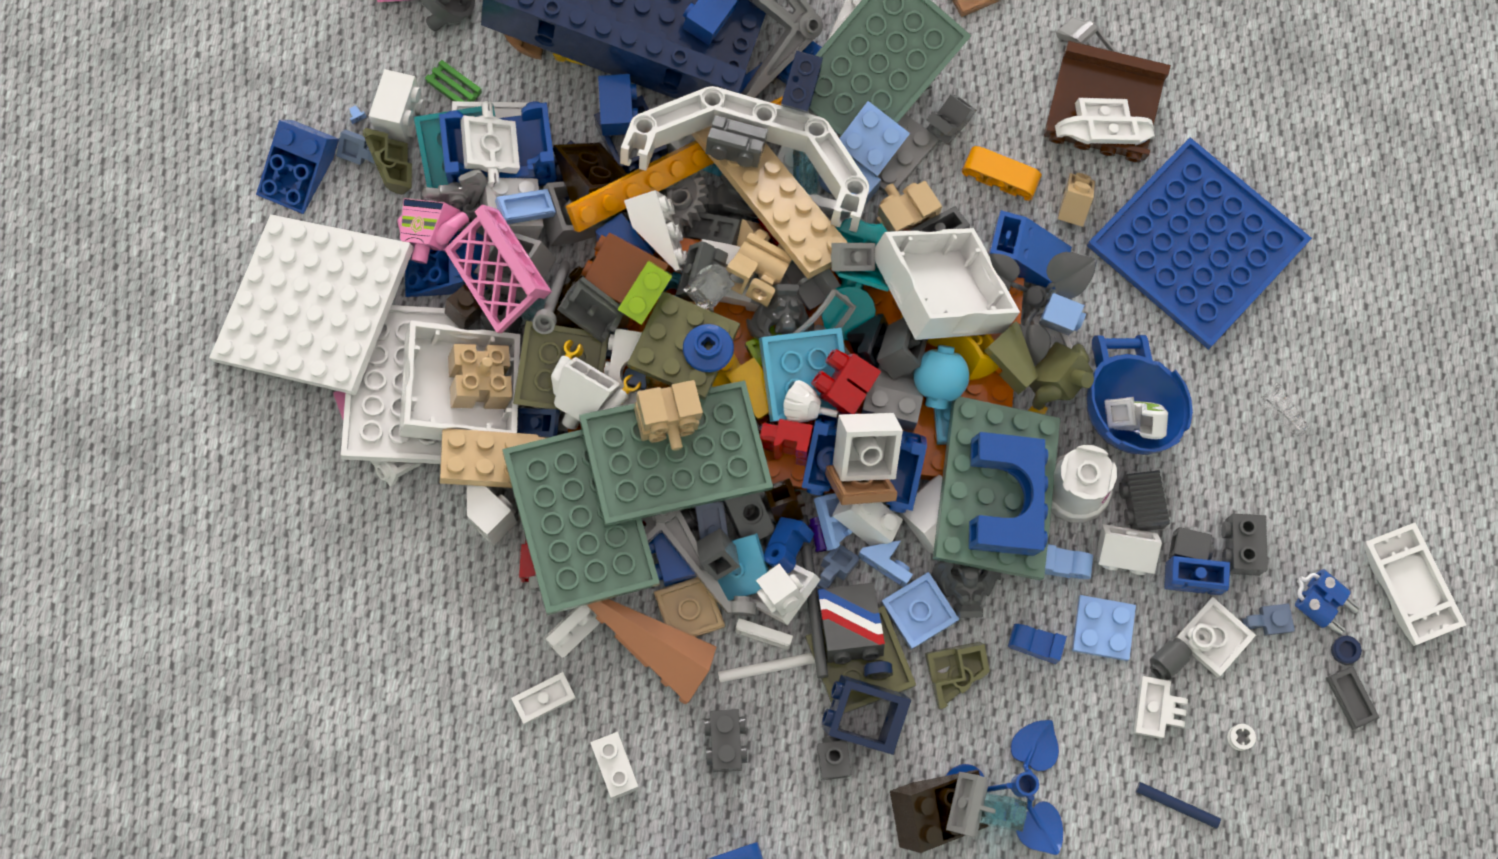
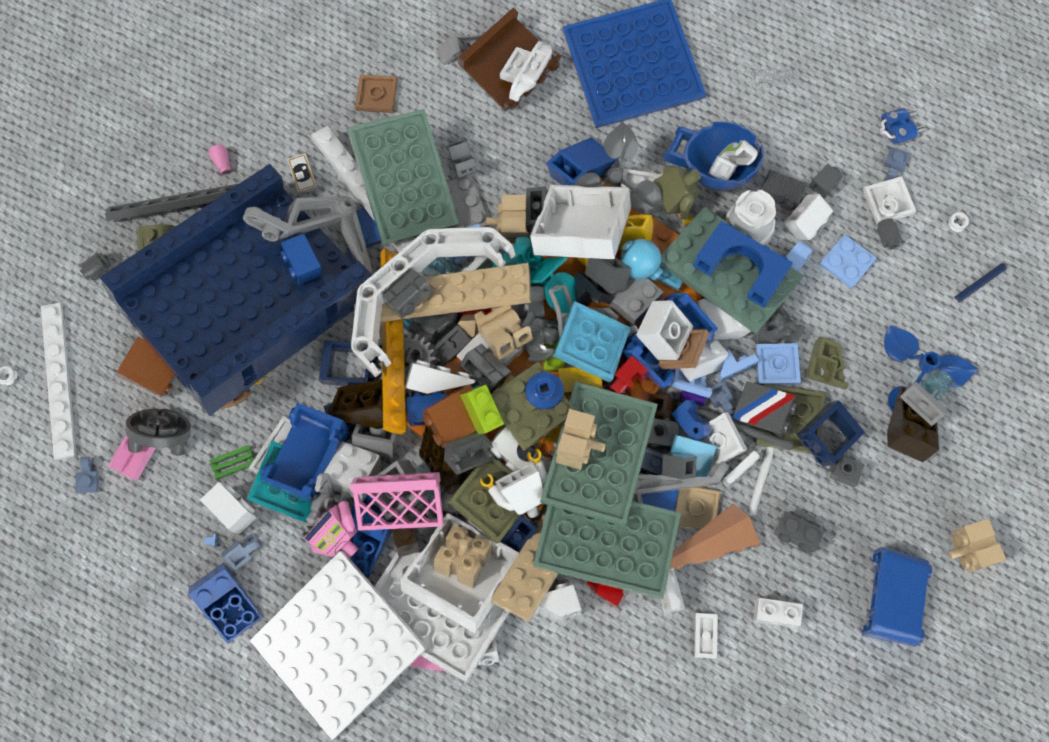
camera: 50 degrees left, 0 degrees up
(391, 160) = (264, 533): olive slope -> none
(490, 144) = (303, 457): white plate -> none
(526, 206) = (361, 458): light blue tile -> none
(545, 319) = (457, 486): light grey piece -> none
(616, 103) = (324, 359): blue brick -> none
(709, 286) = (502, 366): clear brick -> none
(780, 590) = (725, 440): white brick -> none
(802, 81) = (393, 225): dark blue window -> none
(804, 404) = (613, 353): white piece -> none
(848, 383) = (614, 318): red hips -> none
(853, 256) = (533, 266): light grey plate -> none
(873, 138) = (450, 209): light blue plate -> none
(878, 670) = (806, 410): dark blue tile -> none
(1002, 172) = (516, 148): light orange beam -> none
(1013, 357) = (654, 210): olive slope -> none
(1037, 643) = (838, 304): blue leg -> none
(1062, 314) = (640, 165): light blue brick -> none
(1077, 199) = (563, 115): tan slope -> none
(1157, 708) = (915, 259): white hinge -> none
(1197, 575) = (847, 187): blue brick -> none
(1245, 544) = (843, 148): dark grey brick -> none
(1346, 650) = (936, 132): dark blue tile -> none
(1352, 697) = (967, 146): dark grey tile -> none
(1413, 584) = (918, 71): white slope -> none

